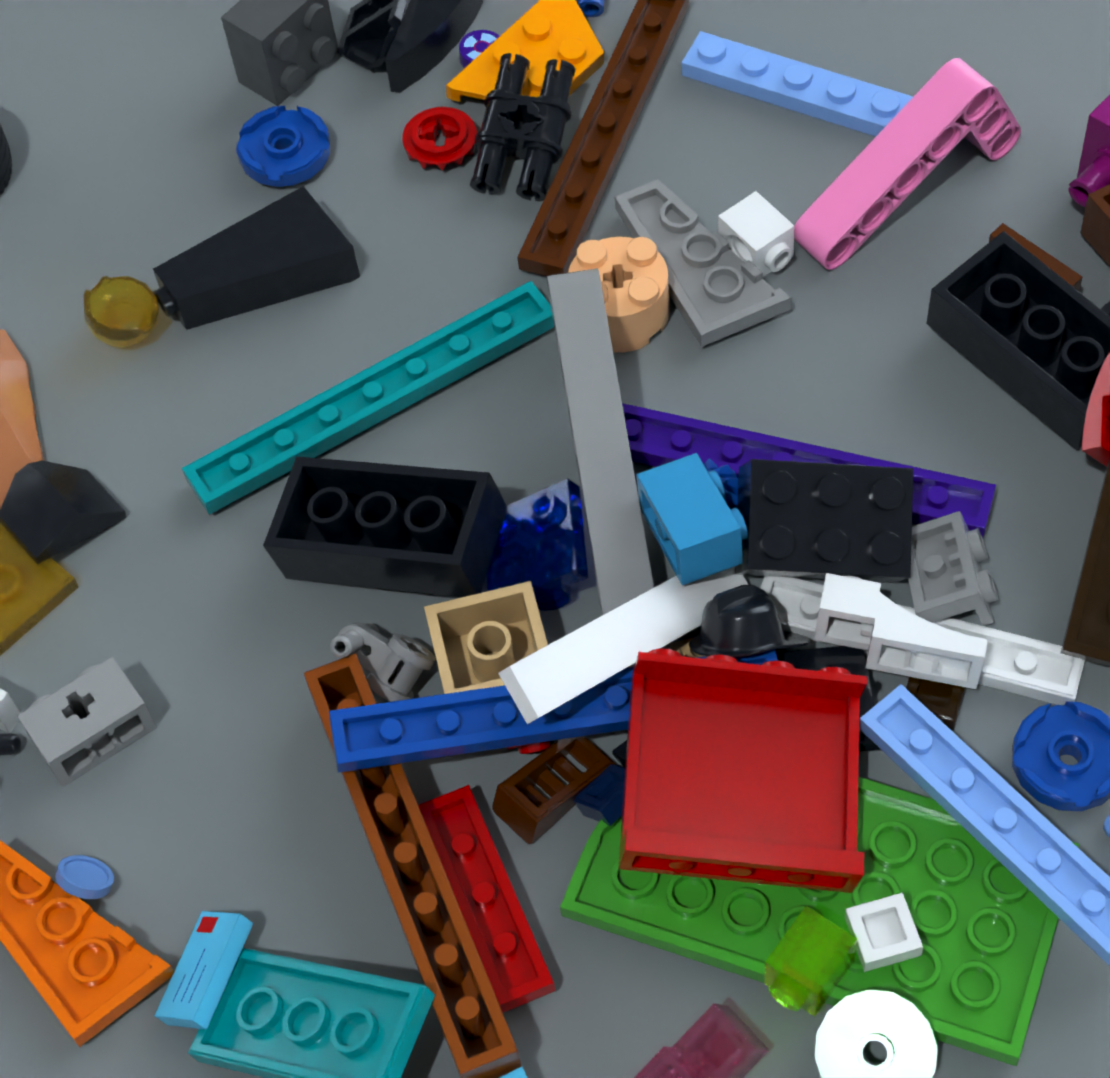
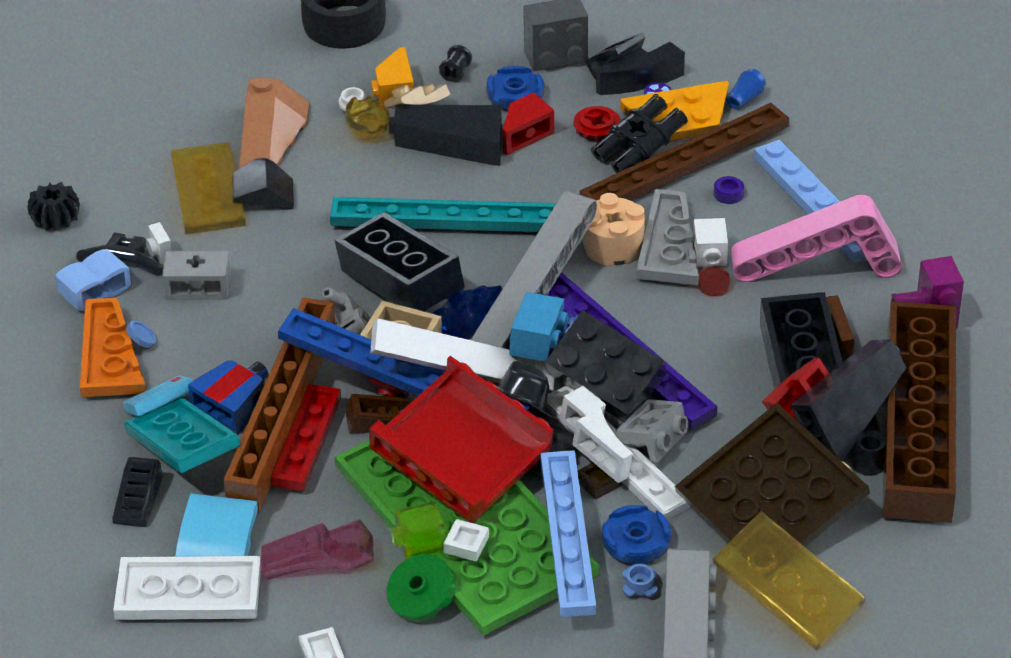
camera: 30 degrees right, 15 degrees down
(66, 292) = (349, 93): none -> white plate
(108, 228) = (391, 75): none -> light orange slope
(167, 145) = (457, 59): none -> black bush
(171, 235) = (417, 95): none -> tan slope
(312, 896) = (229, 393): none -> blue torso
(350, 187) = (527, 122): none -> red slope
(698, 142) = (728, 190): none -> dark purple tile
(808, 291) = (714, 281): none -> clear red tile

